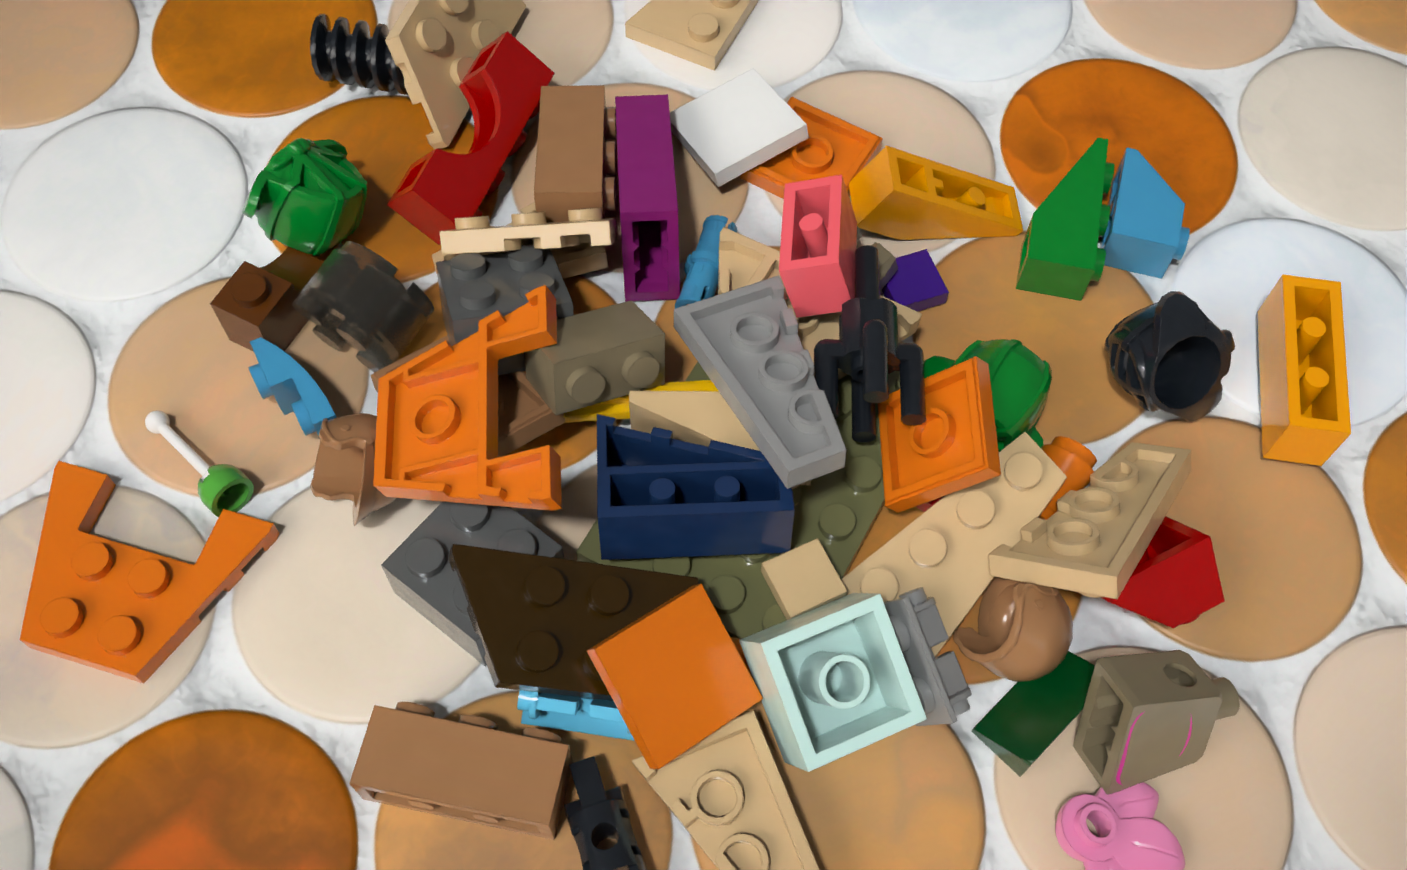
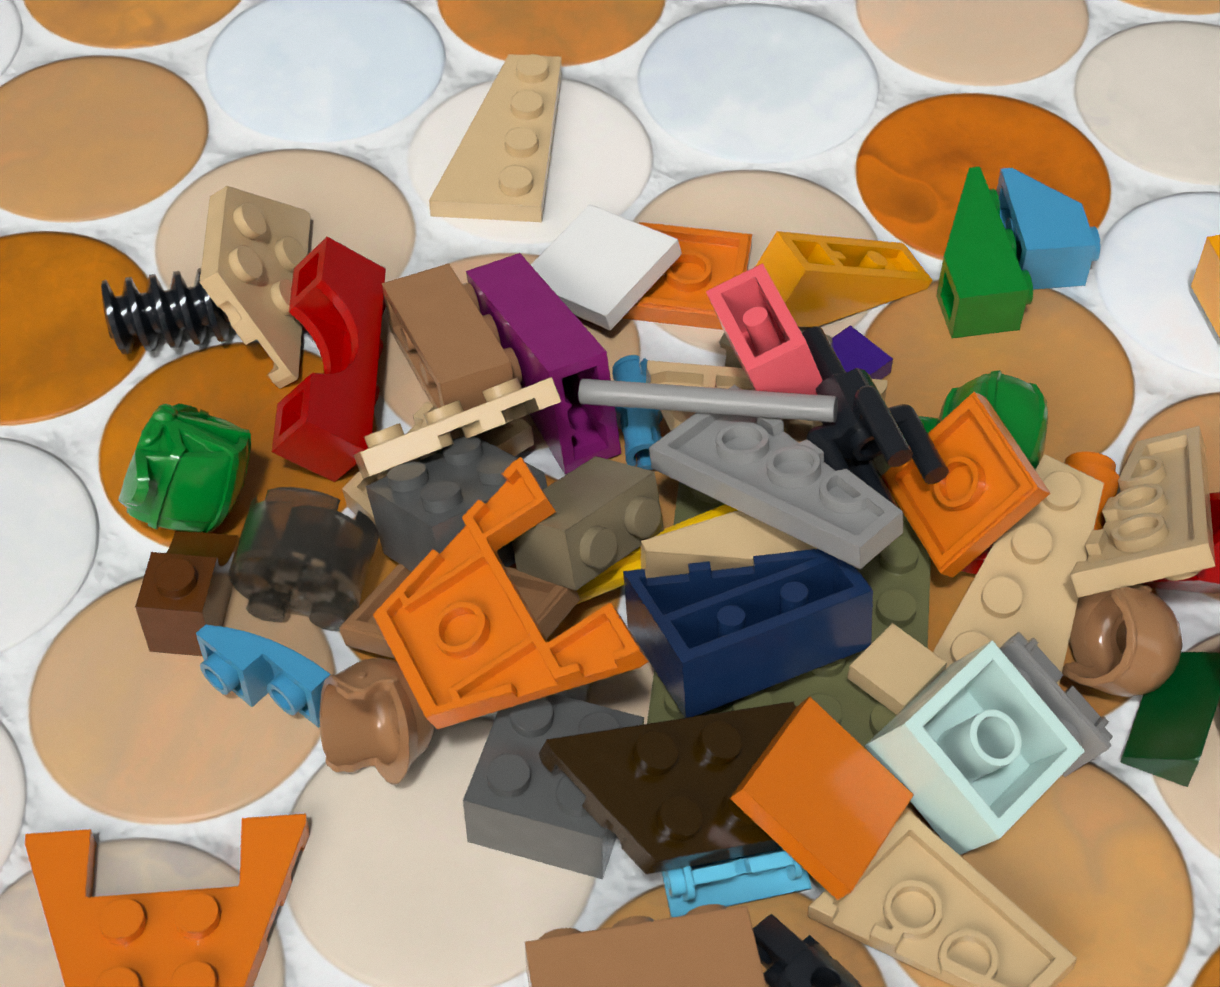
camera: 20 degrees left, 10 degrees down
(220, 485) = (224, 796): bright green hinge -> none
(746, 284) = (708, 400): none -> light grey bar
(1171, 357) = (1138, 346): black piece -> none

